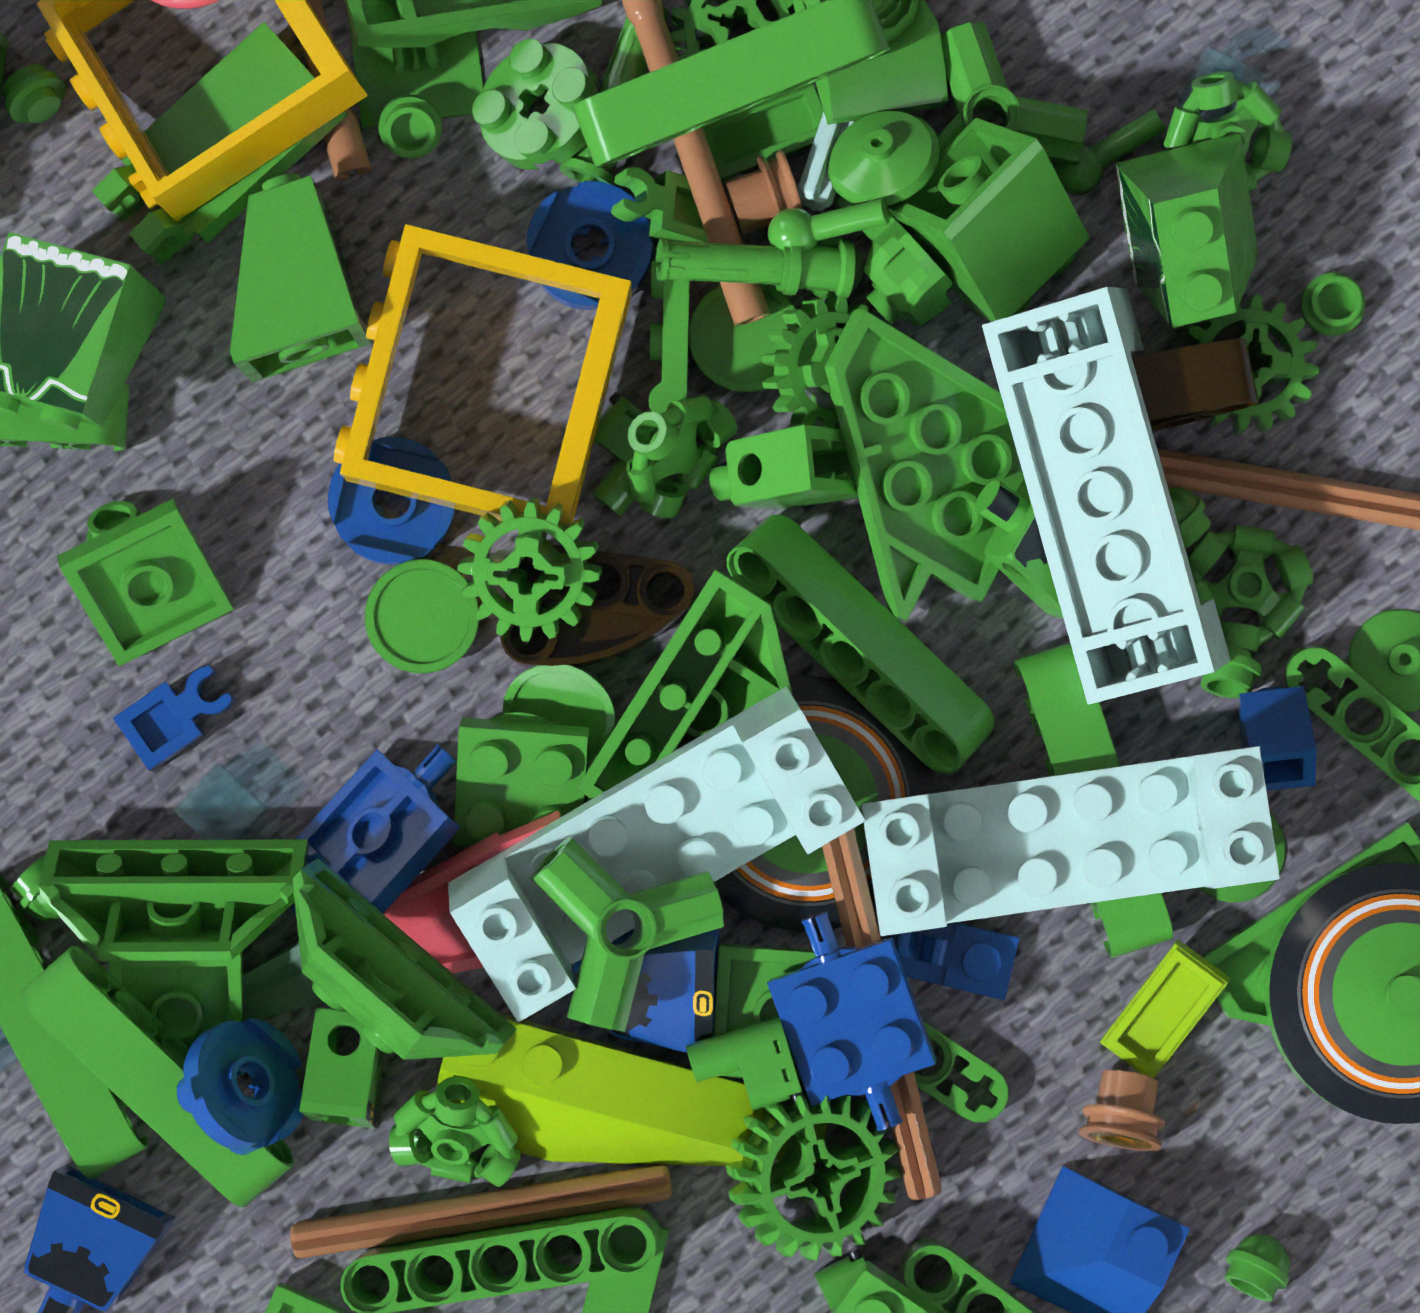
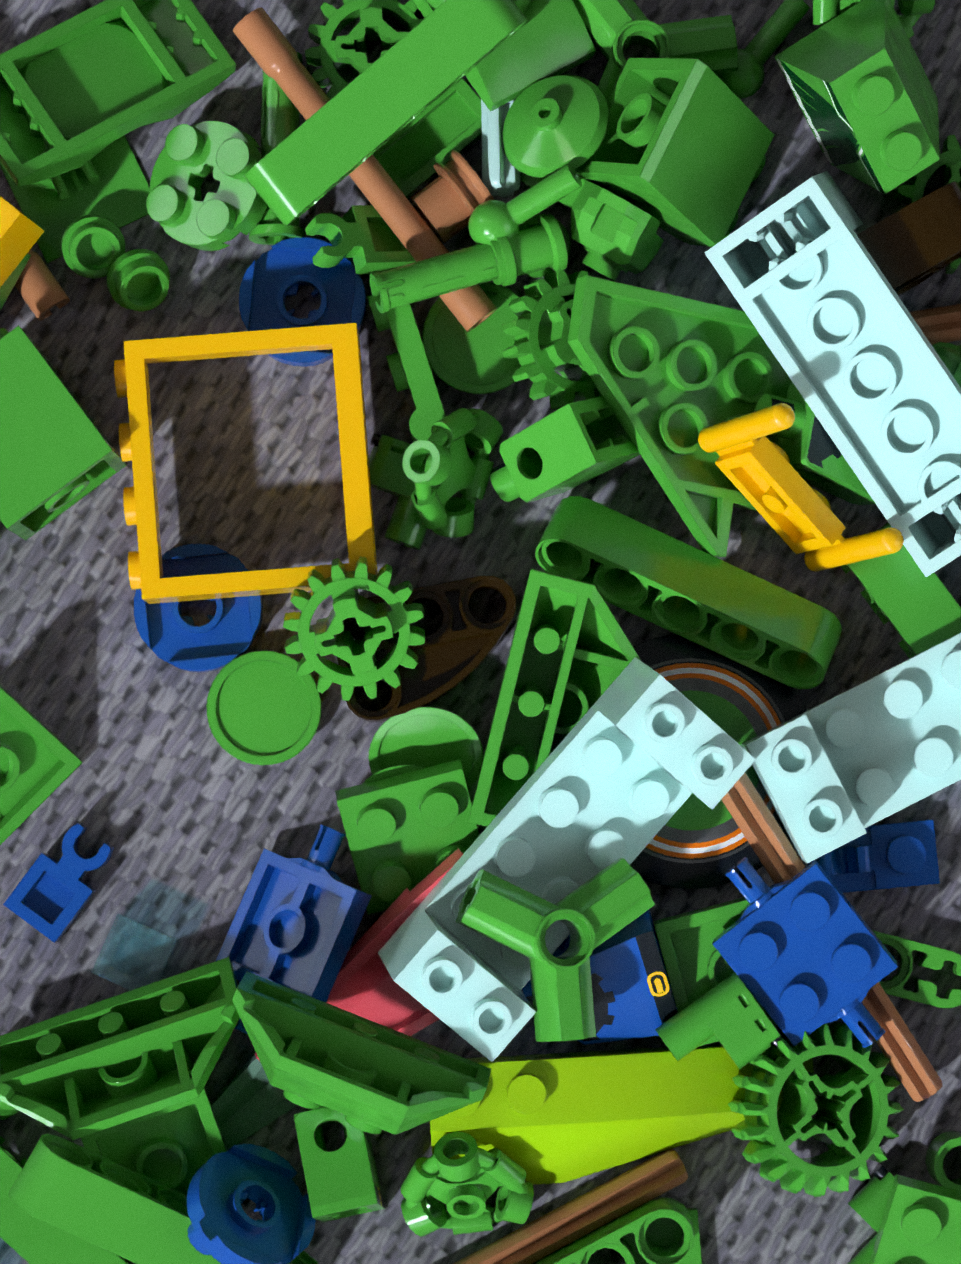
camera: 15 degrees left, 0 degrees up
(442, 172) = (138, 280): none -> bright green plate
(979, 583) = (783, 497): none -> yellow plate

